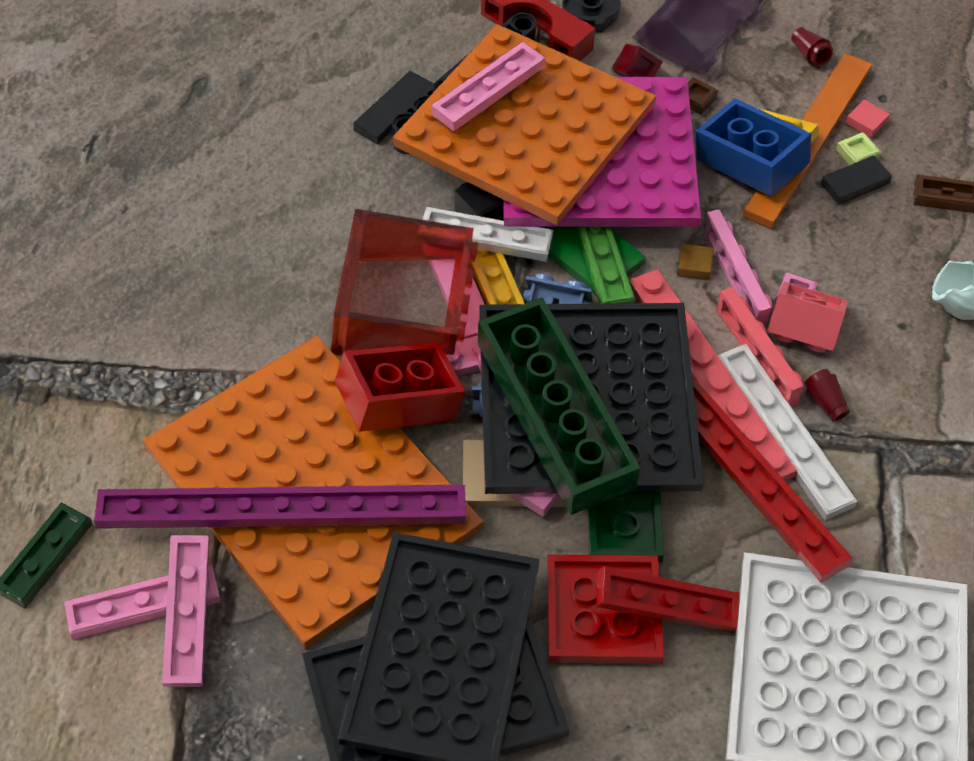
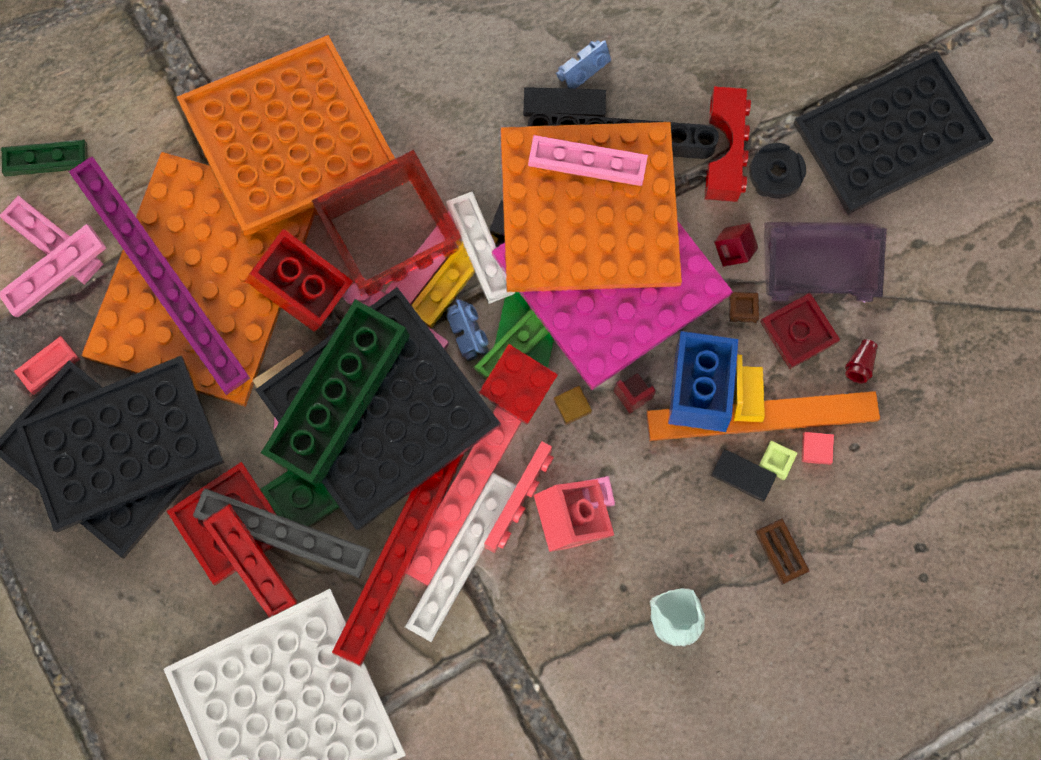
camera: 55 degrees right, 20 degrees up
(229, 320) = (284, 133): none -> orange plate
(283, 688) = (45, 365): none -> coral tile
(370, 71) = (591, 60): none -> medium blue hinge
(649, 276) = (517, 384): none -> red plate
(661, 553) = (289, 535): none -> dark grey tile
(727, 204) = (634, 392): none -> dark red panel
(735, 266) = (590, 430): bright pink plate -> none
(751, 69) = (800, 331): none -> dark red plate
(827, 394) = (510, 569): dark red cone -> none

